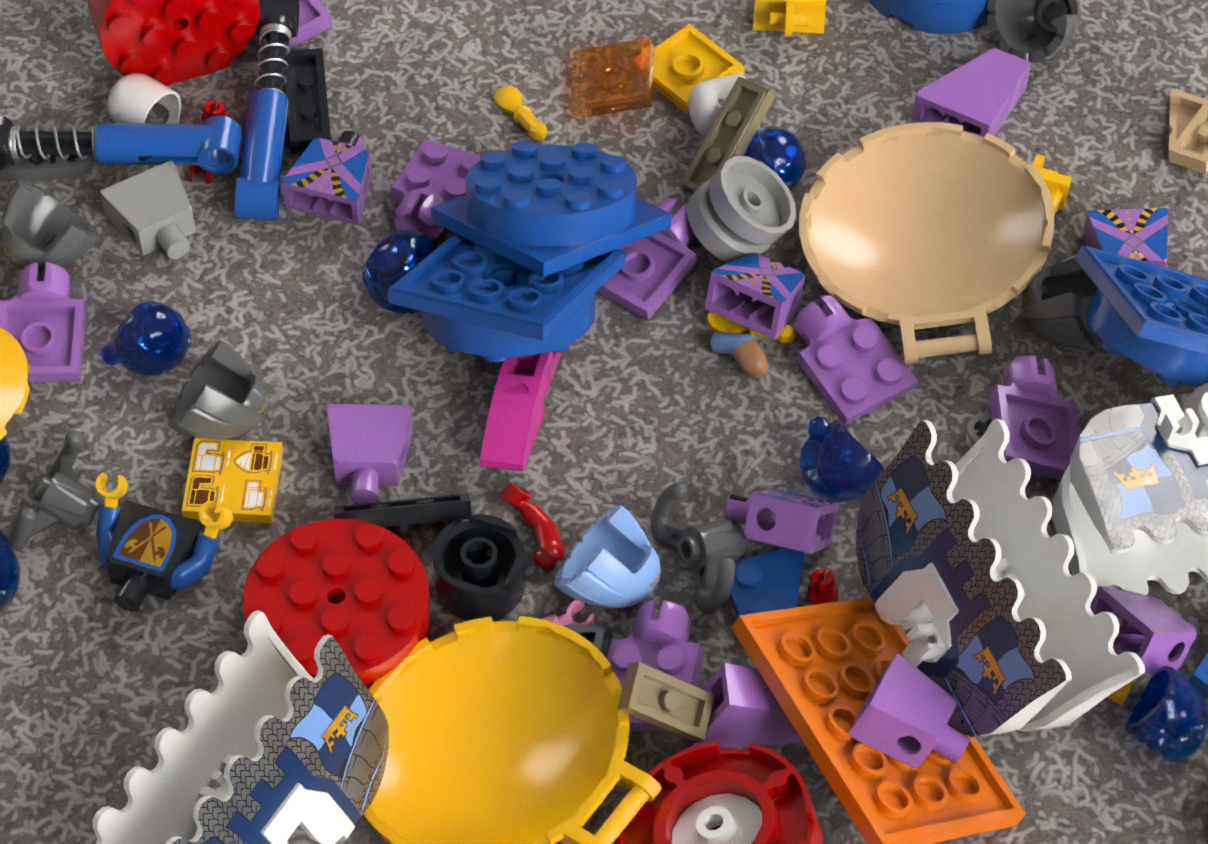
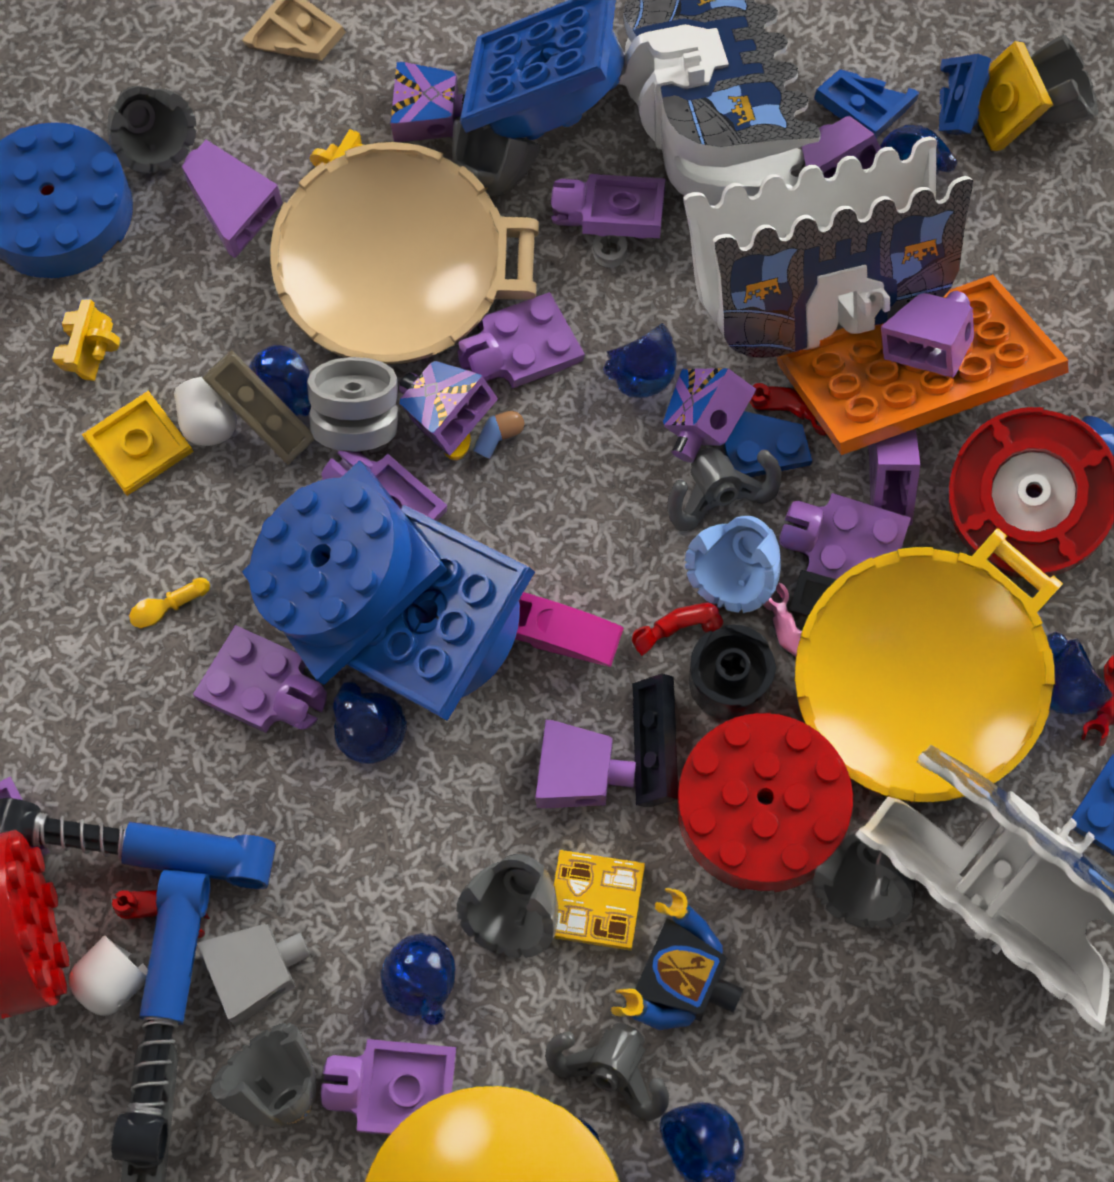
camera: 80 degrees left, 15 degrees up
(307, 98) = (121, 804): black plate -> none
(330, 179) = (234, 784): medium lavender torso -> none
(612, 78) = (144, 510): clear orange tile -> none
(666, 701) = (910, 517): dark tan plate -> none

